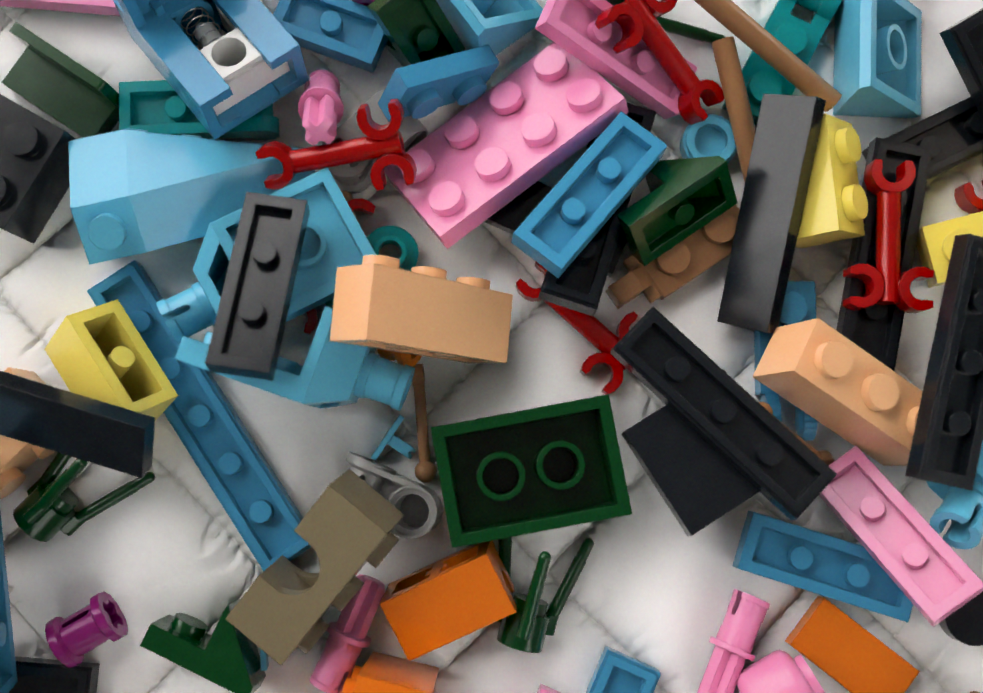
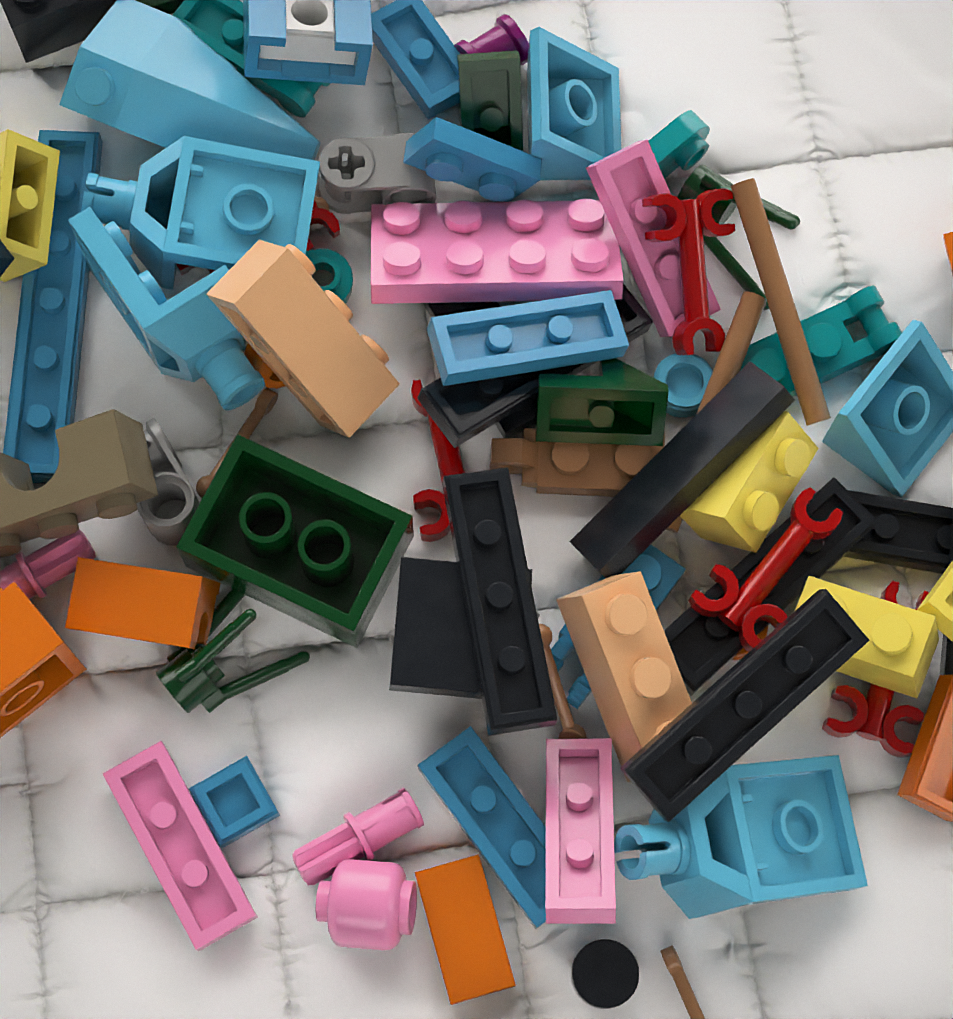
camera: 30 degrees right, 10 degrees down
(258, 287) = (182, 208): black plate -> none
(321, 107) = (356, 111): bright pink axle -> none
(380, 143) = (379, 172): red bar -> none
(394, 441) = (199, 438): medium azure piece -> none

